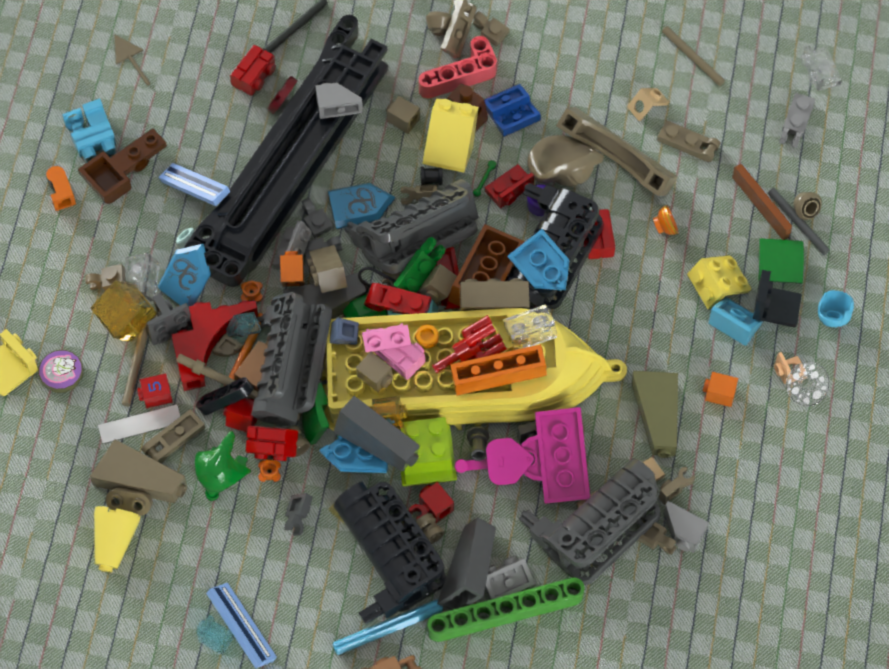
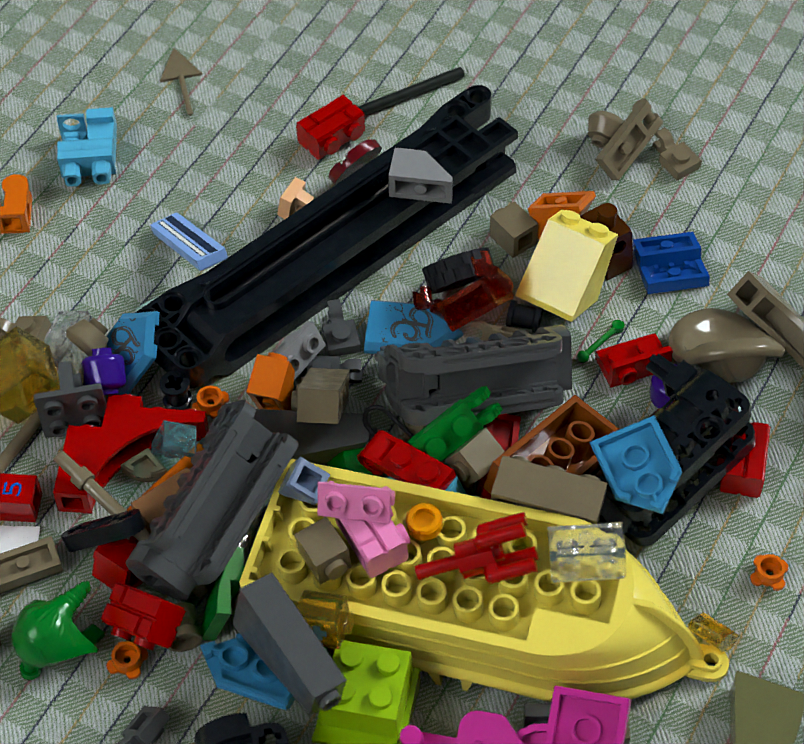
camera: 20 degrees right, 10 degrees down
(108, 174) = (84, 203): reddish brown plate -> none
(160, 272) = (87, 335): none -> dark tan cone
(179, 292) = (104, 369): none -> dark purple head
(225, 296) = (176, 392): none -> black bush
(251, 133) = (293, 198): none -> light nougat tile
(381, 157) = (453, 271): none -> black tyre
(396, 176) = (472, 300): none -> clear red torso
(425, 94) = (551, 203): none -> orange slope
(433, 82) = (633, 197): coral beam -> none
(478, 440) = (457, 702): dark grey pin -> none
(498, 370) = (512, 599): orange brick -> none
(613, 351) = (713, 632): none -> clear yellow slope
(636, 298) = (773, 564): none -> orange plate

